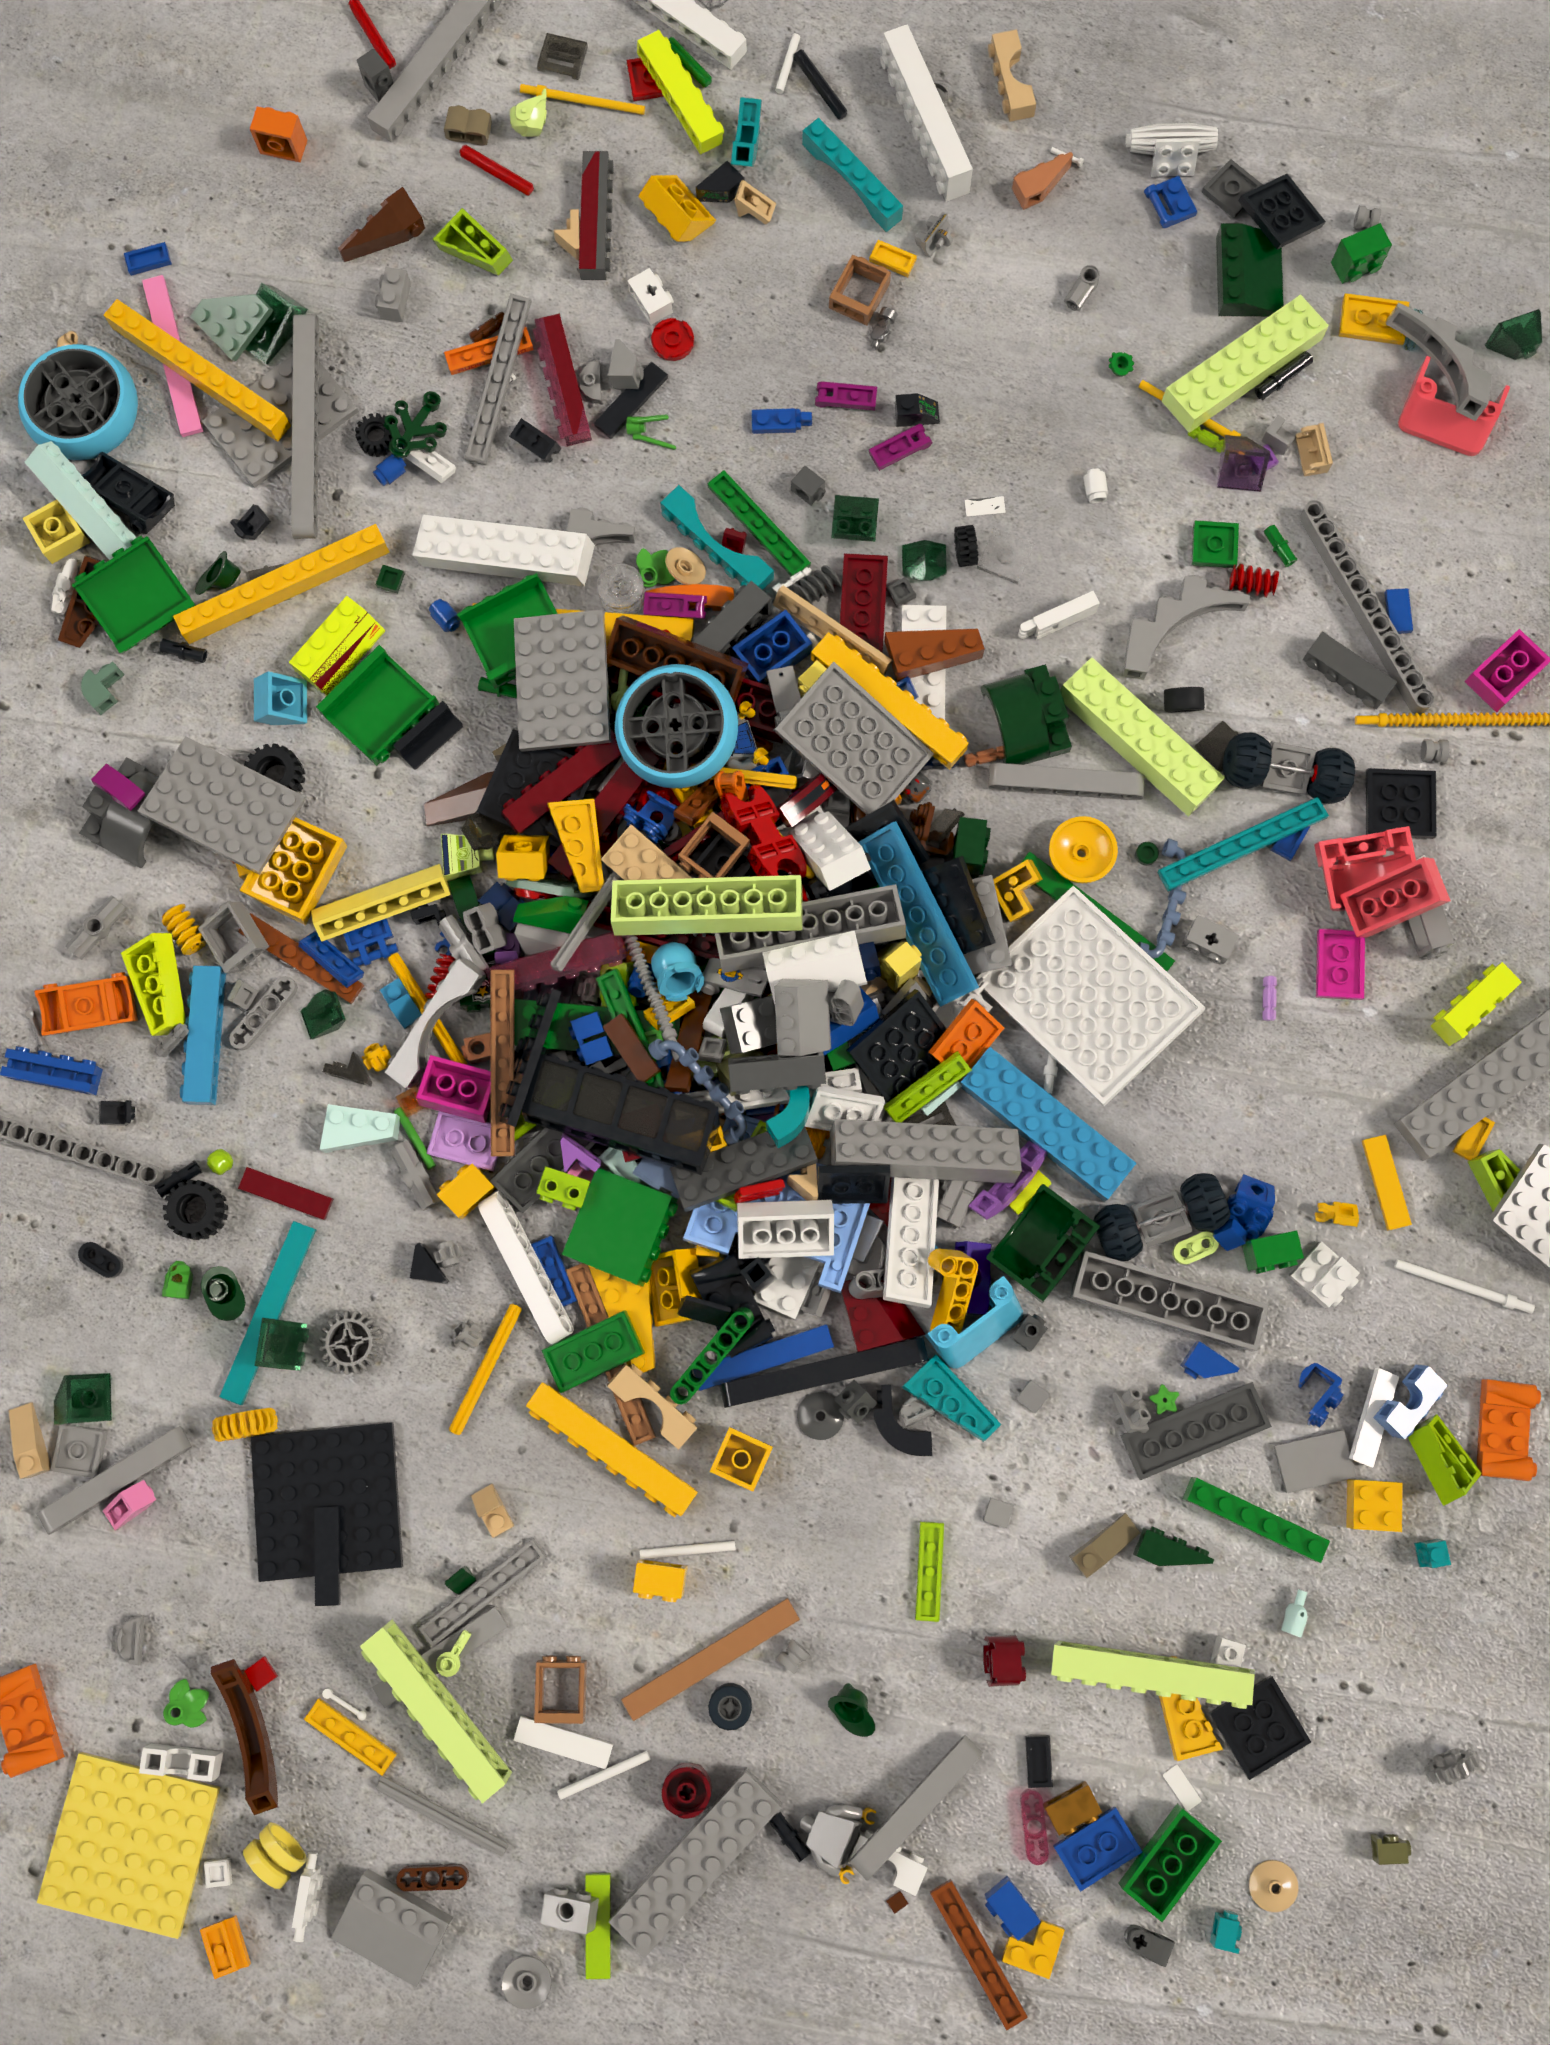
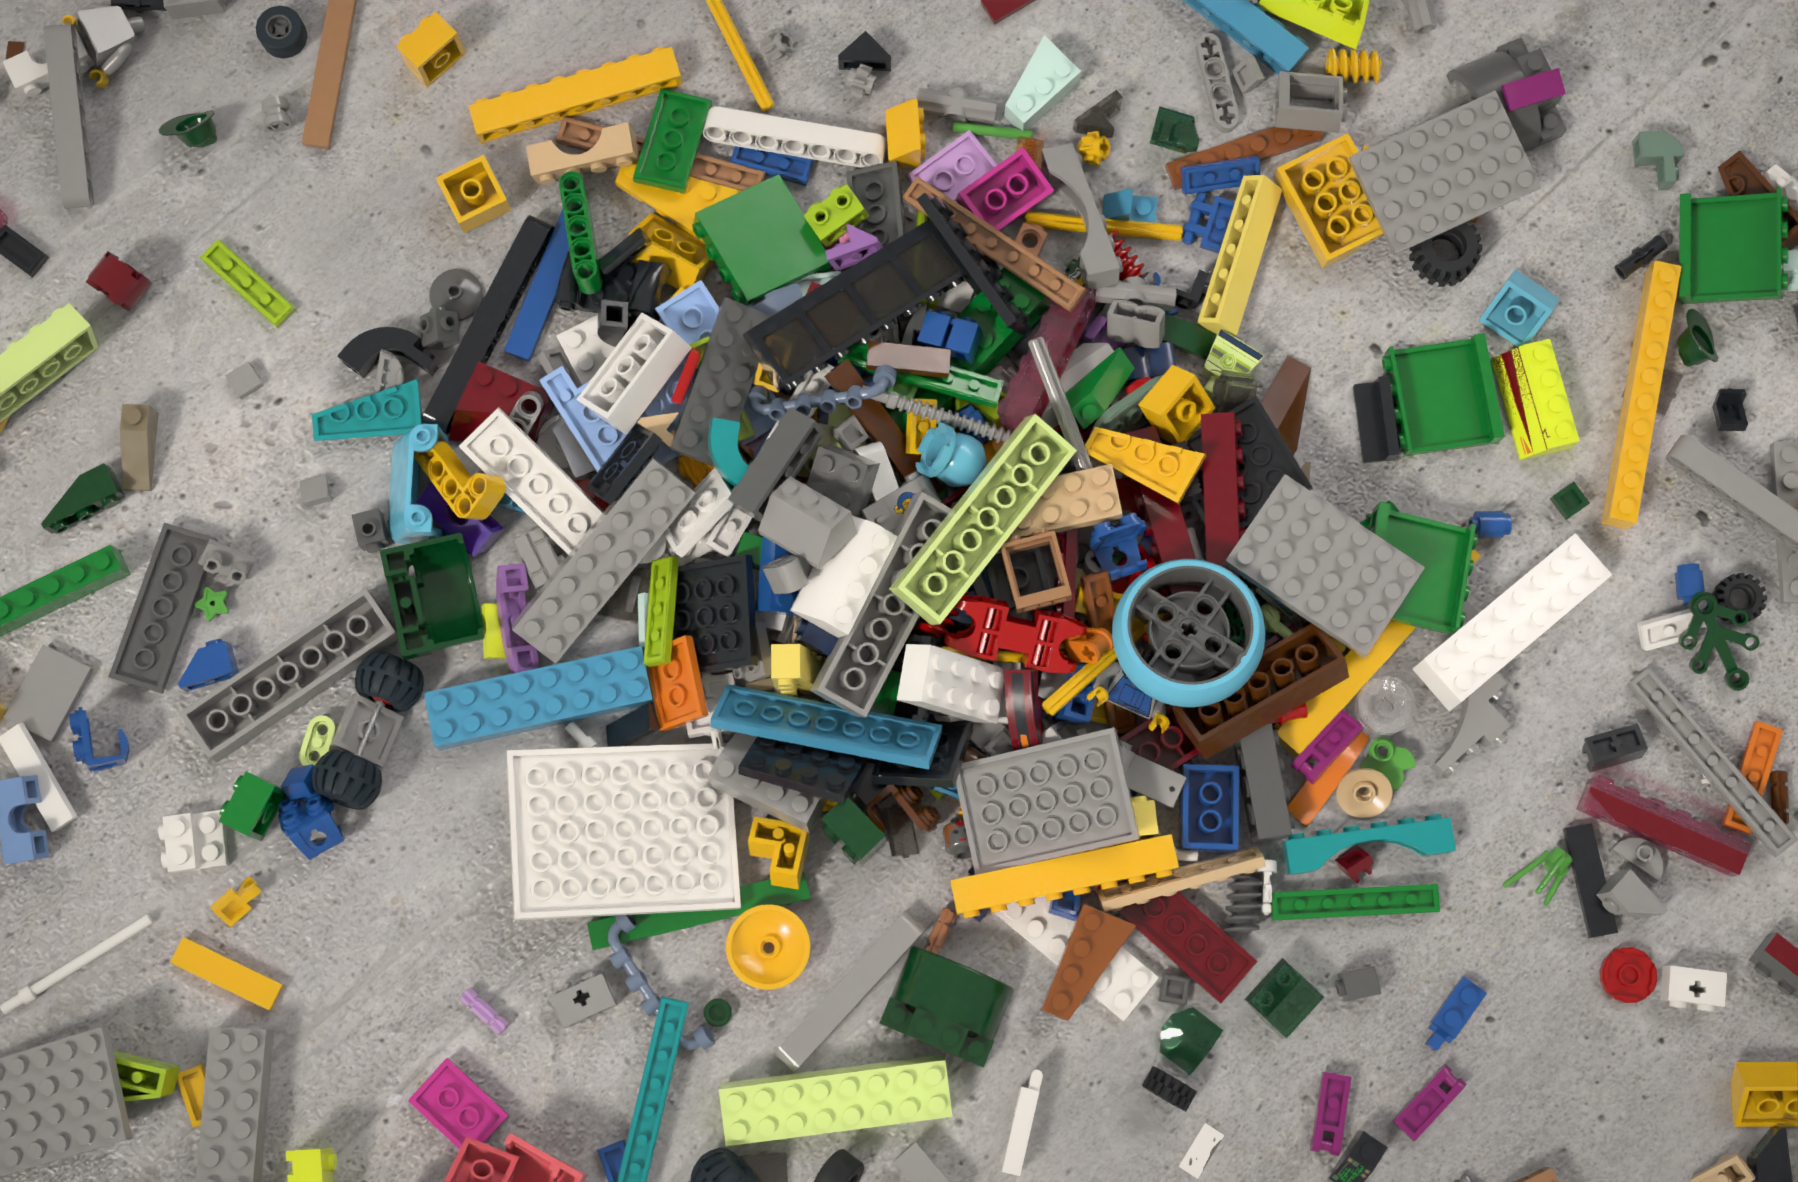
camera: 125 degrees right, 0 degrees up
(687, 1550) = (439, 96): white bar -> none
(1017, 1048) = (632, 727): none -> black slope

